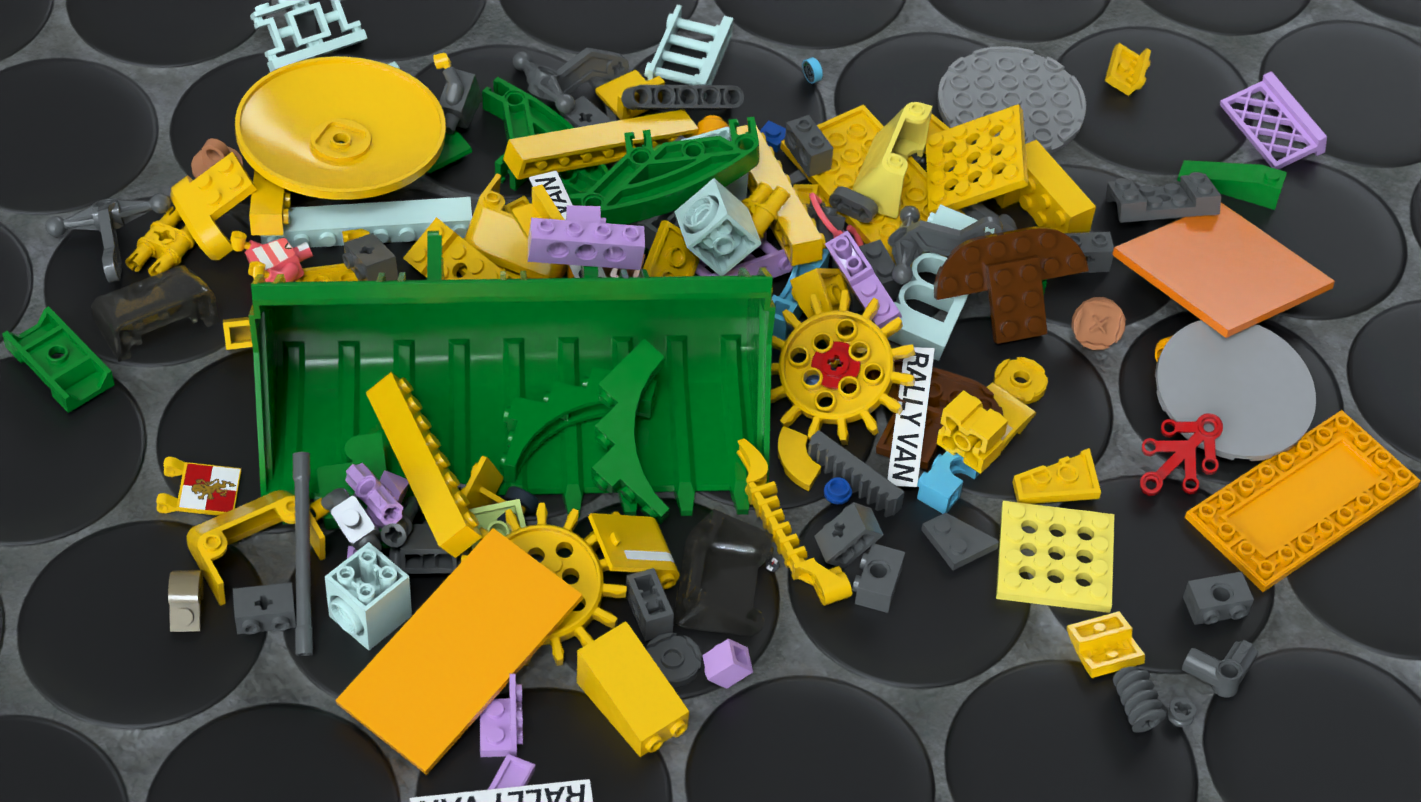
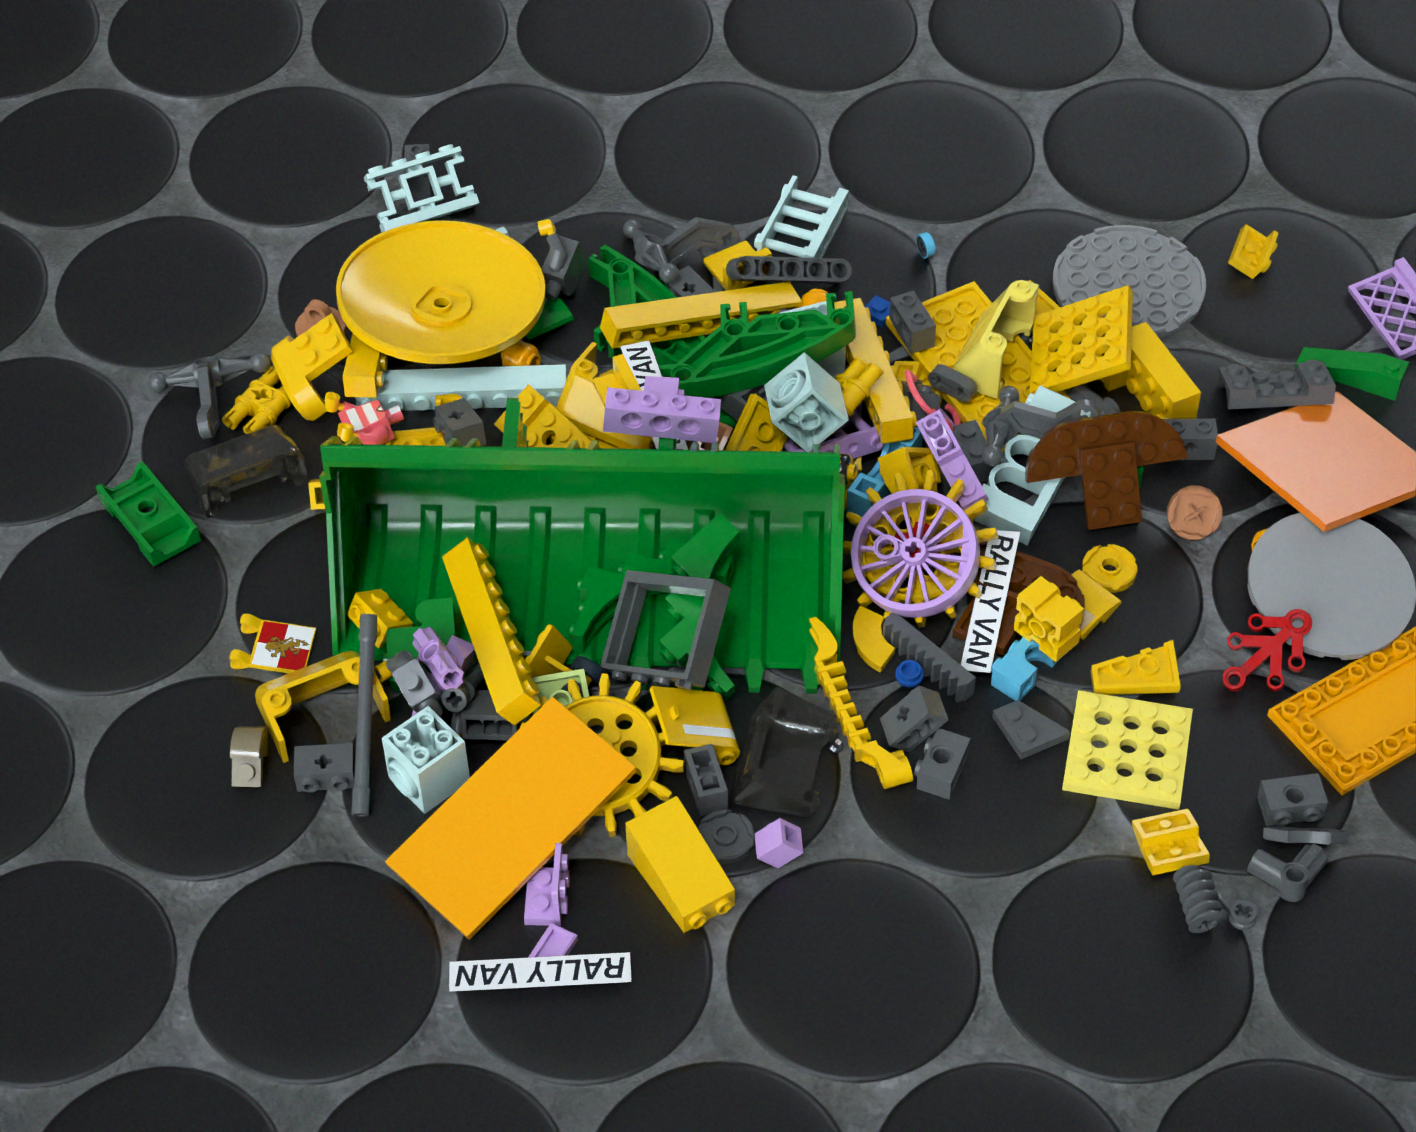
camera: 10 degrees right, 0 degrees up
(304, 440) = (380, 604): none -> yellow bracket
(423, 188) = (520, 355): none -> light orange head
(558, 443) = (628, 614): none -> dark grey window
(889, 378) = (901, 555): none -> lavender piece
(1234, 632) = (1305, 835): none -> dark grey tile

